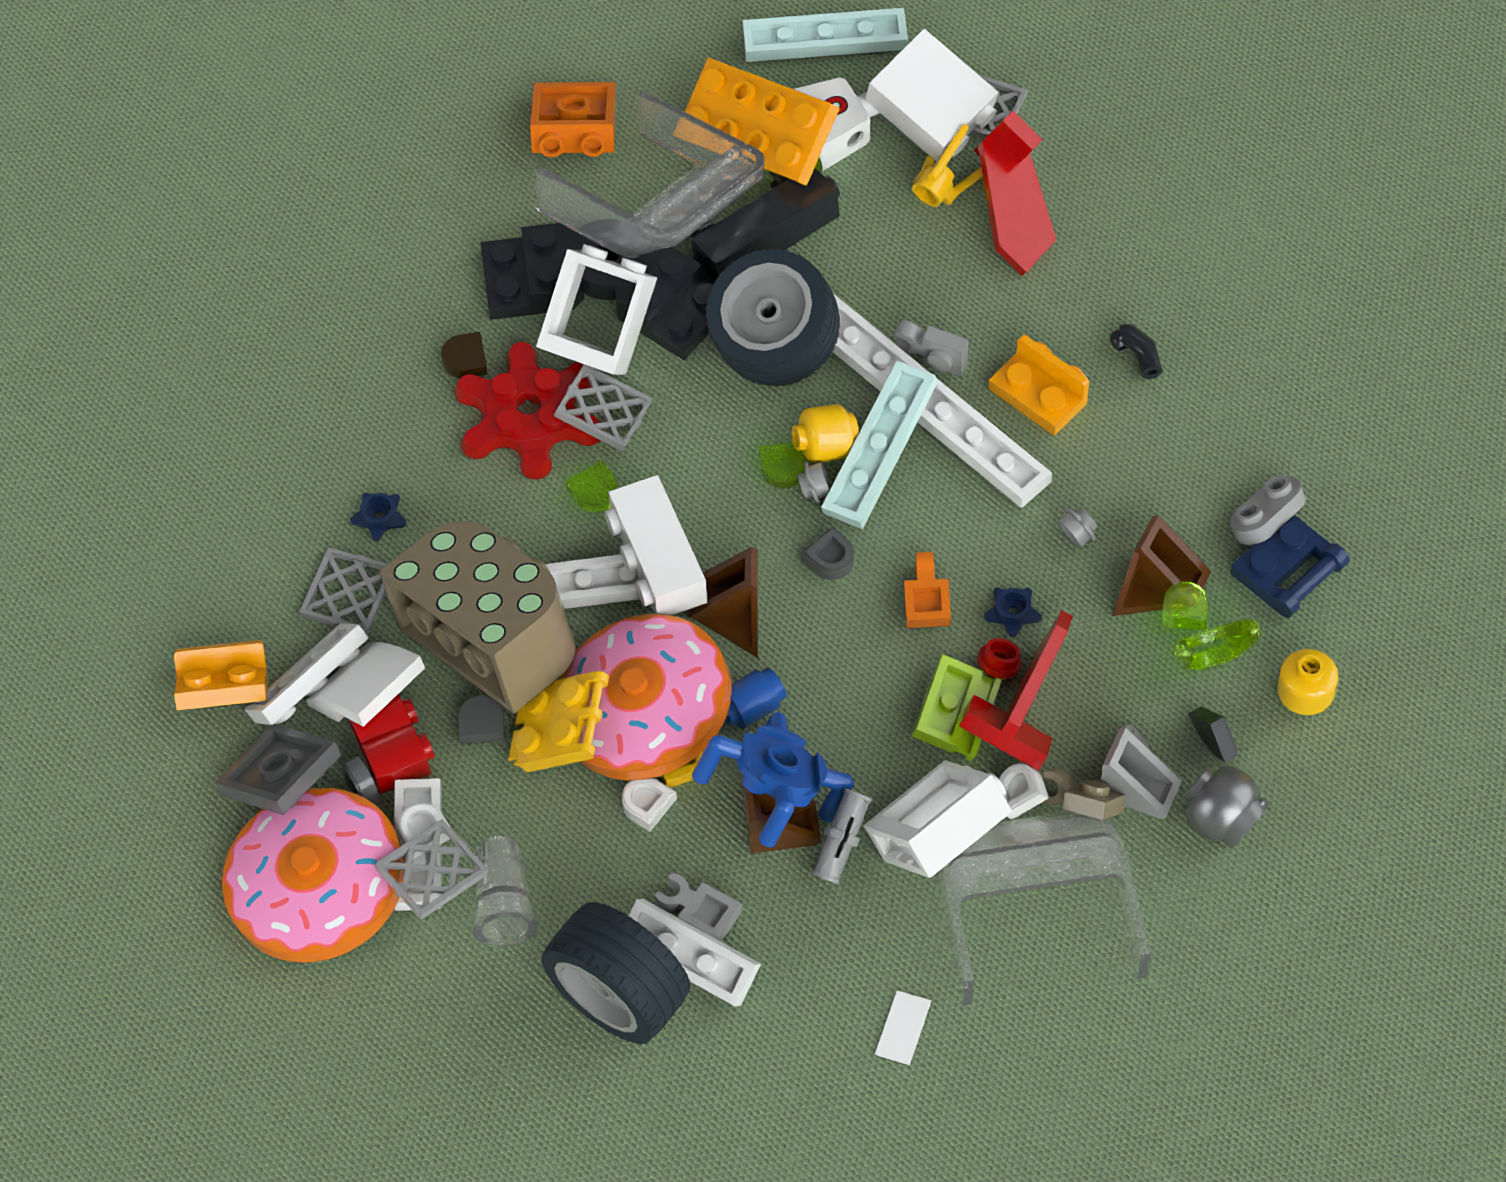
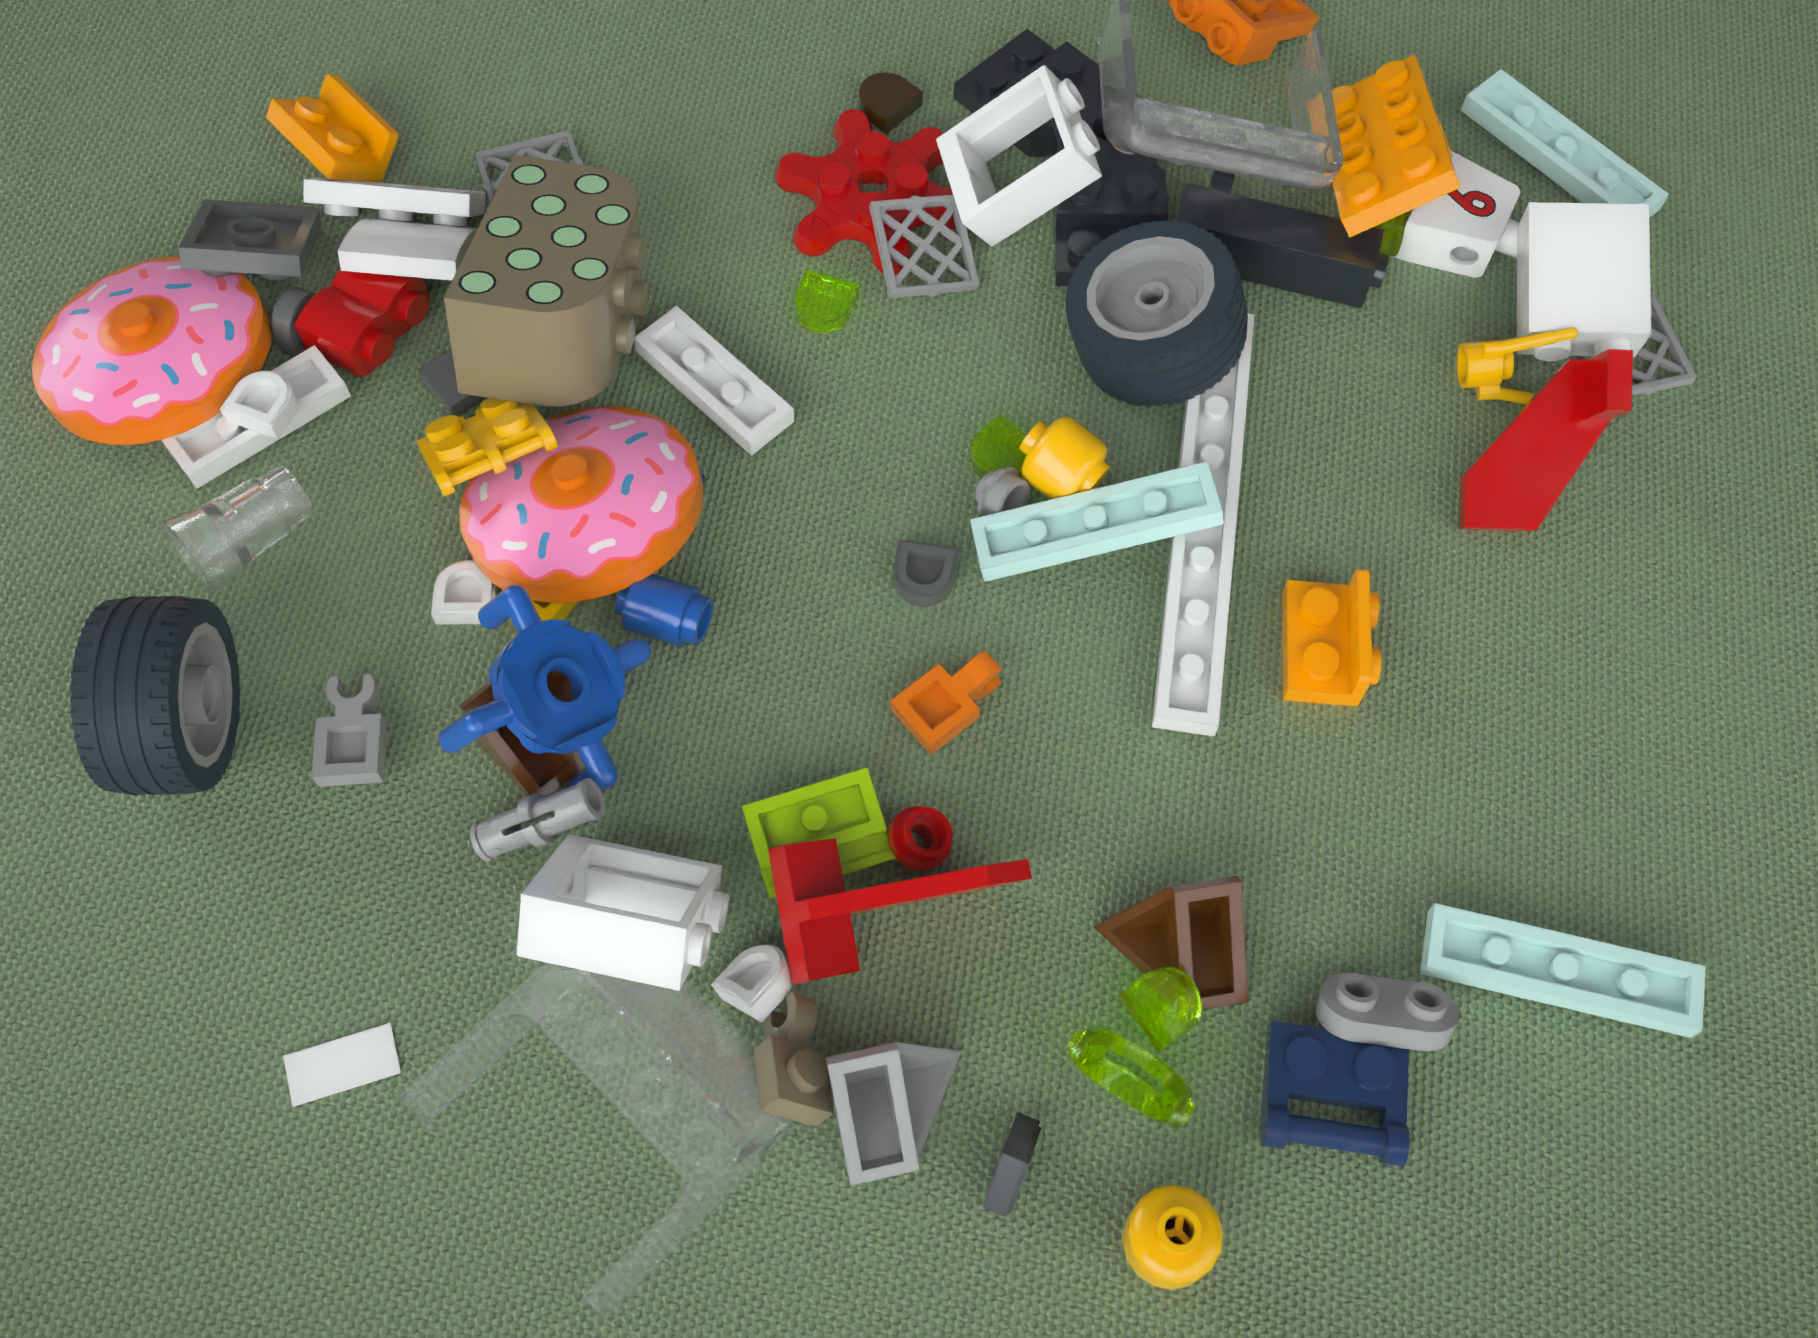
camera: 50 degrees right, 5 degrees up
(375, 504) = (639, 135): dark blue plate -> none
(413, 846) = (184, 472): light grey window -> none
(655, 547) = (768, 390): white brick -> none
(703, 957) = (280, 761): white plate -> none
(733, 600) = (783, 514): reddish brown slope -> none
(938, 348) = (1278, 505): light grey plate -> none
(1015, 599) = (1013, 792): dark blue plate -> none
(1078, 526) = (1173, 804): light grey plate -> none
(1145, 348) = (1485, 711): black arm -> none
(1224, 805) = (900, 1255): flat silver piece -> none
(1307, 417) = (1564, 970): none -> light aqua plate

